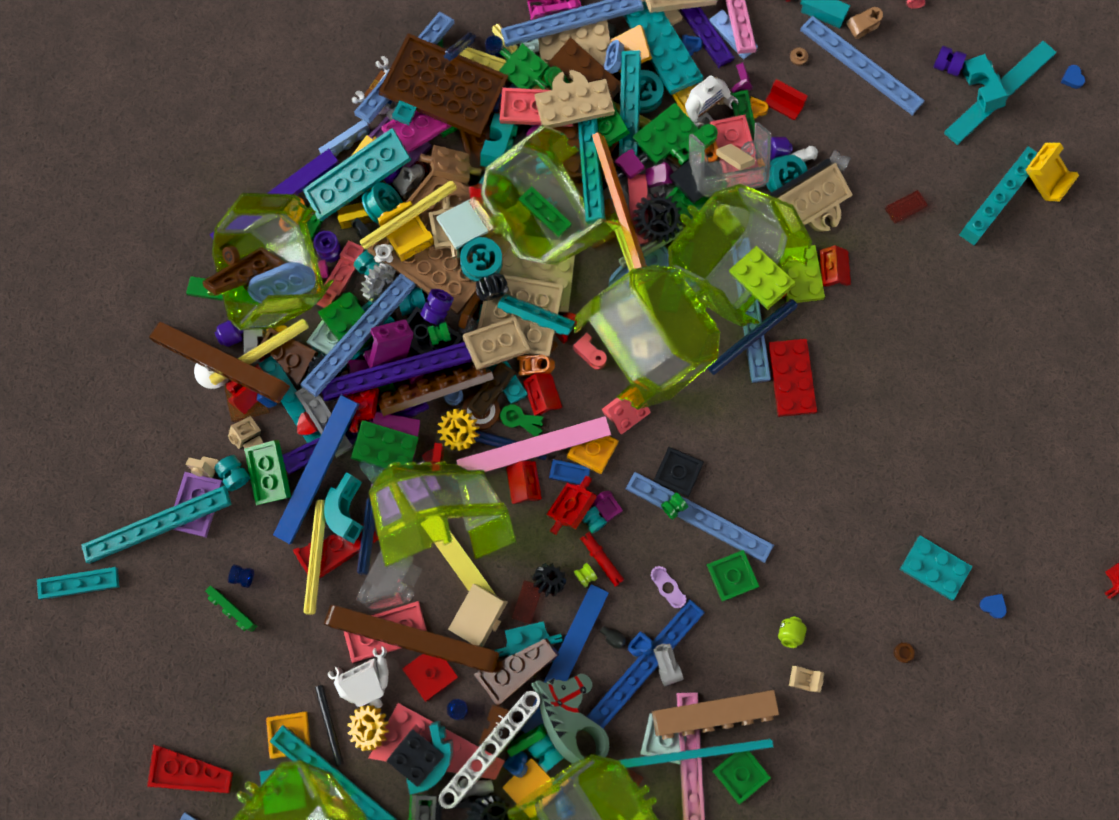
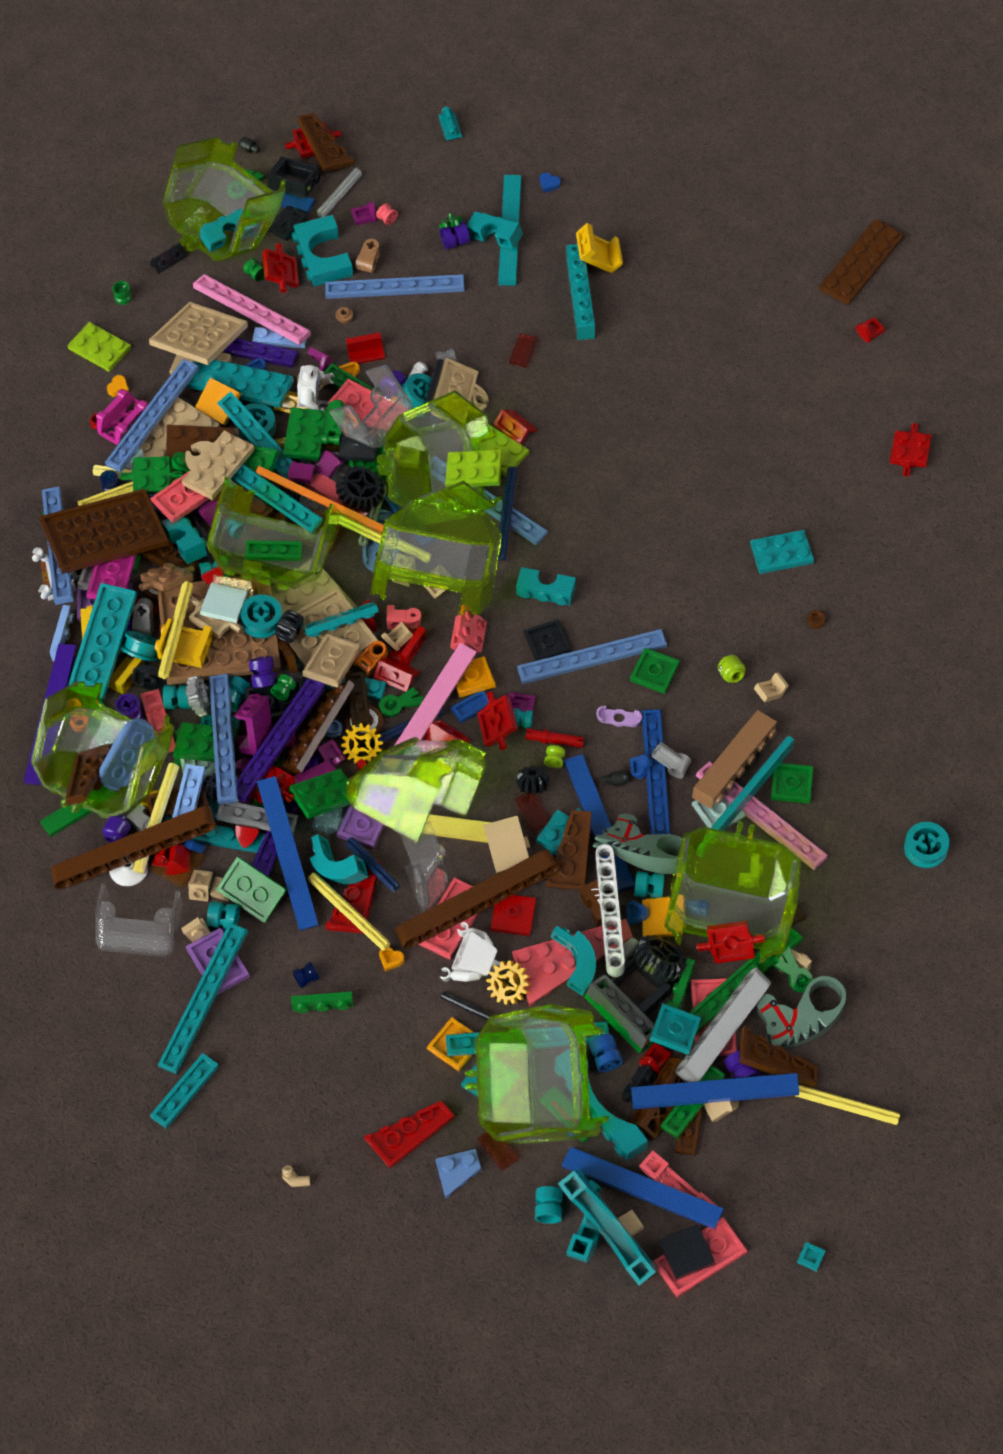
camera: 45 degrees left, 15 degrees down
(80, 726) = (293, 1179): none -> tan arm
(174, 447) = (134, 935): none -> clear windscreen
(231, 255) = (61, 773): reddish brown tile -> none
(294, 355) = (189, 789): none -> light blue plate
(313, 622) = (391, 959): none -> light orange tile
(383, 248) = (183, 666): white plate -> none
(404, 112) = (95, 570): teal plate -> none
(415, 757) = (562, 961): black bracket -> none
(430, 416) = (331, 752): none -> magenta tile
(459, 46) = (87, 496): dark blue axle -> none
(460, 710) = (559, 919): clear blue wheel -> none
(527, 739) = (627, 887): green tile -> none
(570, 364) = (397, 636): none -> tan tile
(573, 378) = (411, 647): none -> red panel
(614, 56) = (212, 413): medium blue plate -> none
(674, 506) = (568, 662): green wheel -> none
(727, 440) = (560, 591): none -> teal arch
(735, 156) = (373, 406): tan tile -> none
(792, 377) = (561, 518): red plate -> none
(958, 46) = (451, 221): none -> green piece
(994, 605) = (842, 541): blue tile -> none

